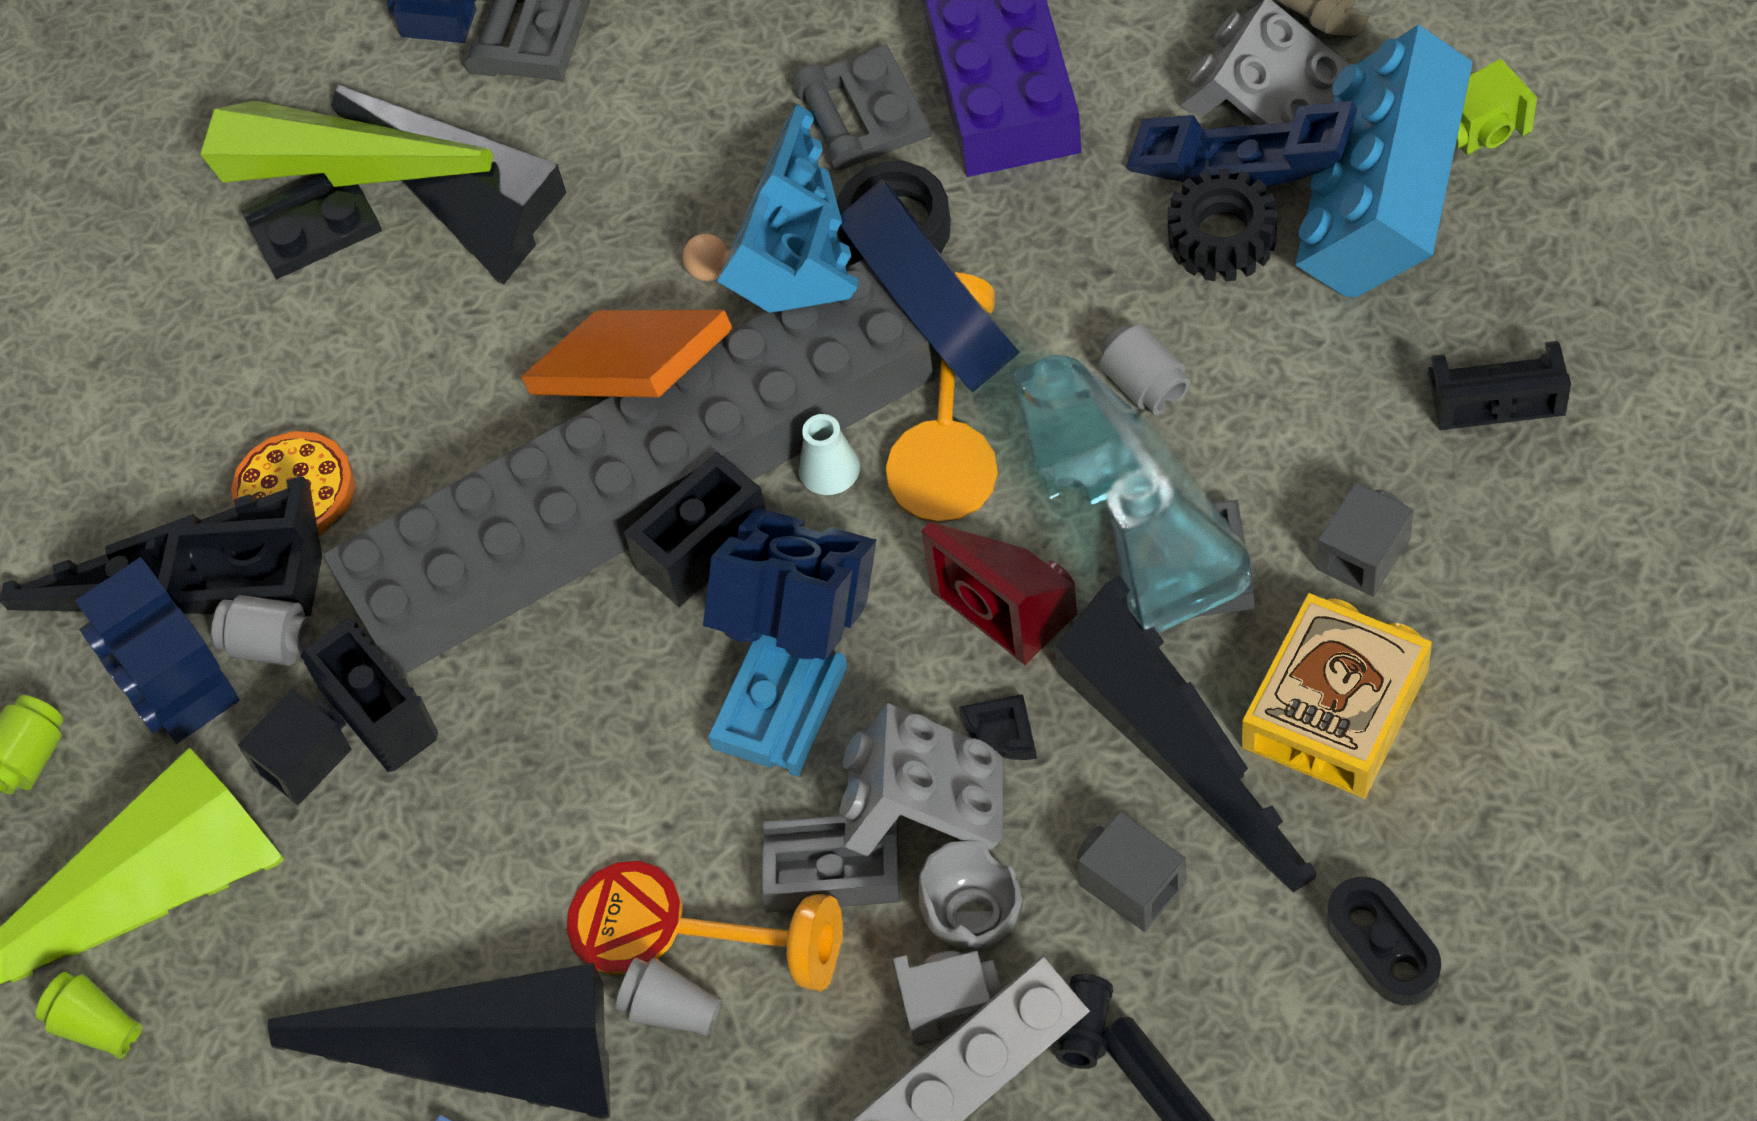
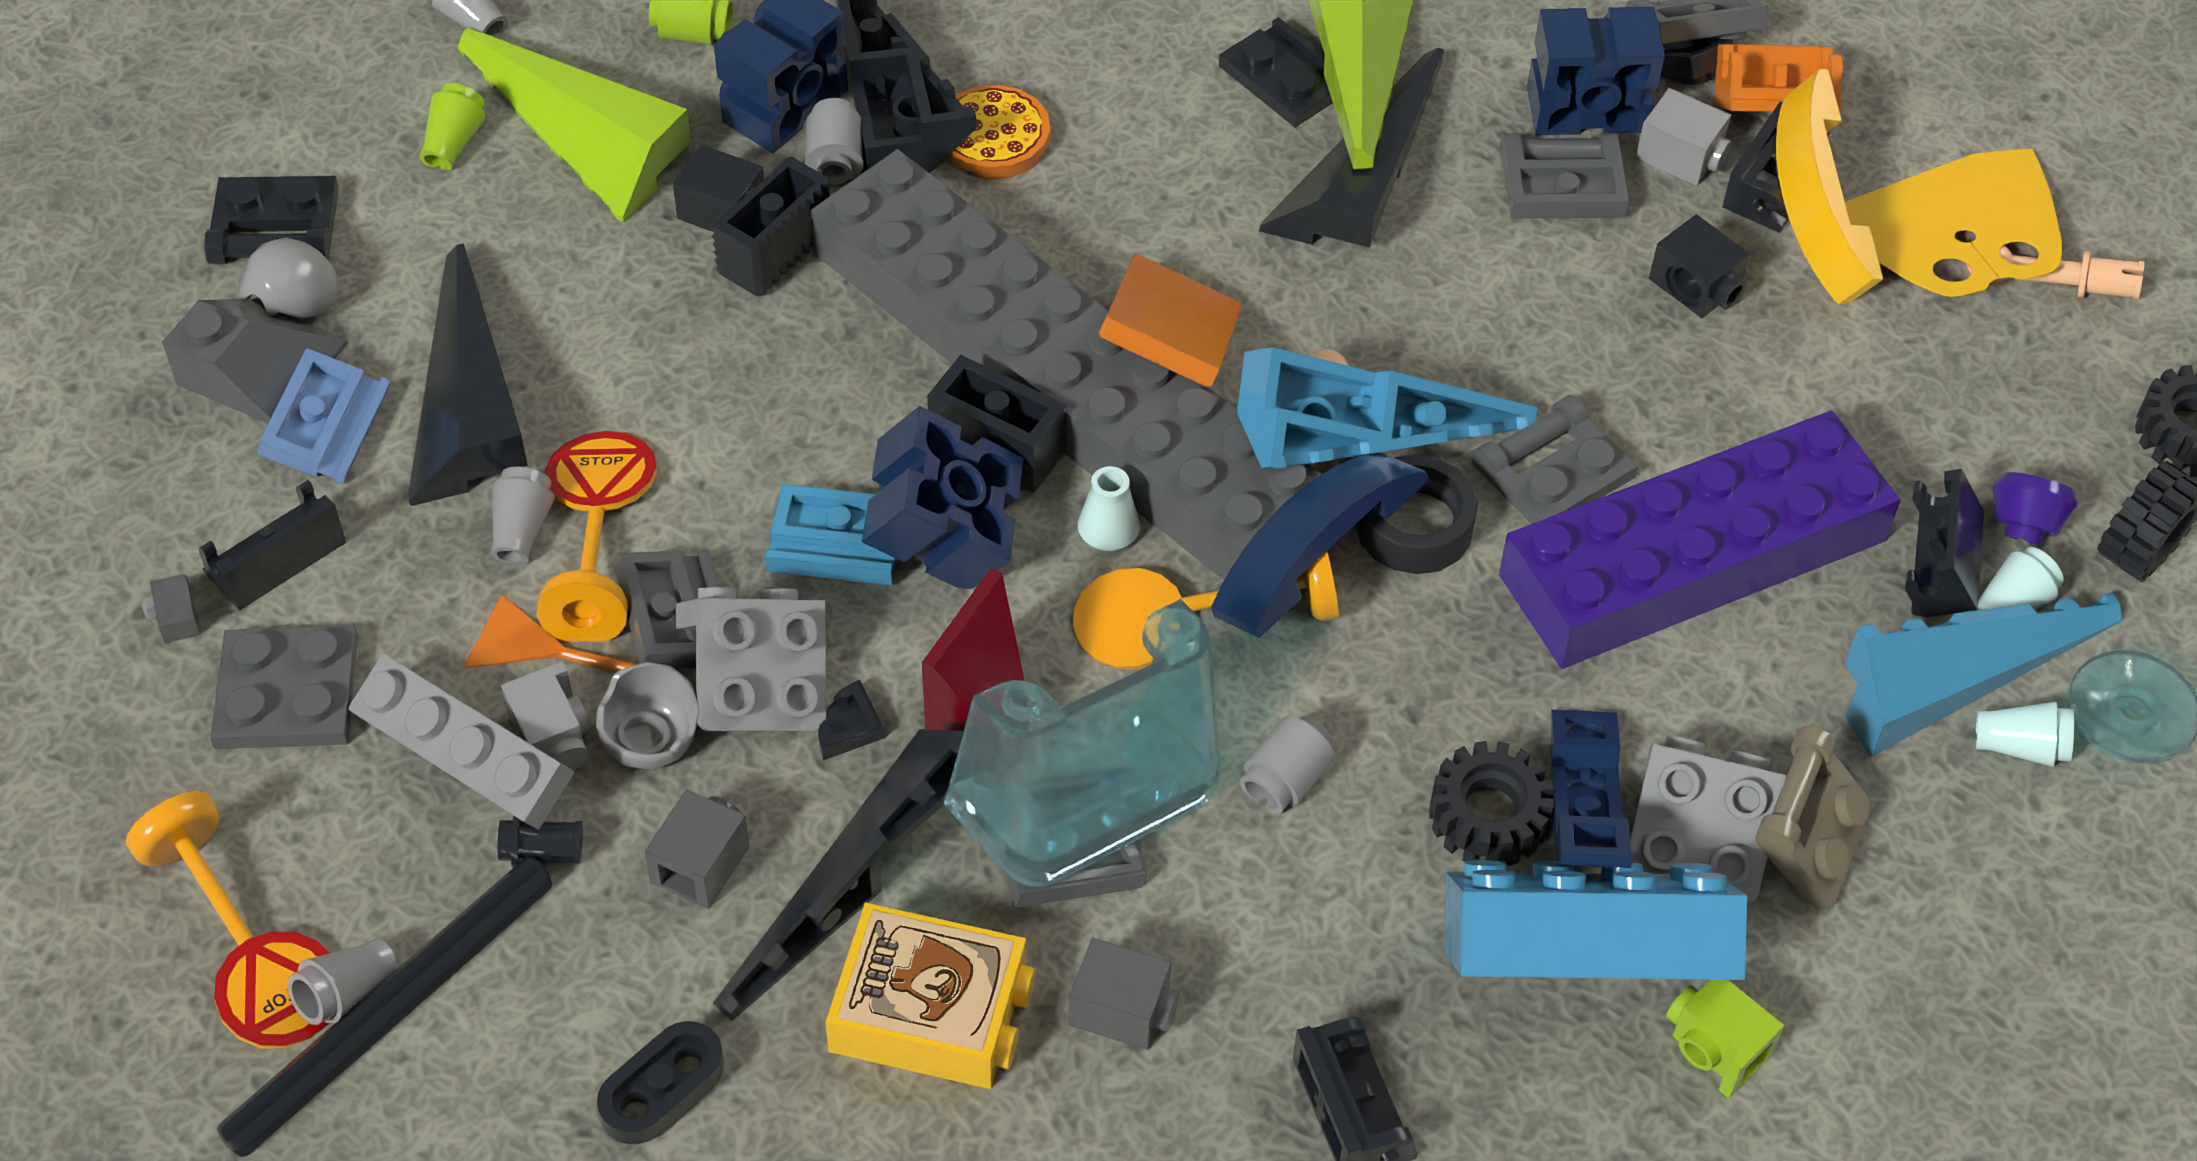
camera: 65 degrees right, 5 degrees down
(818, 1027) = (515, 637): none -> orange piece

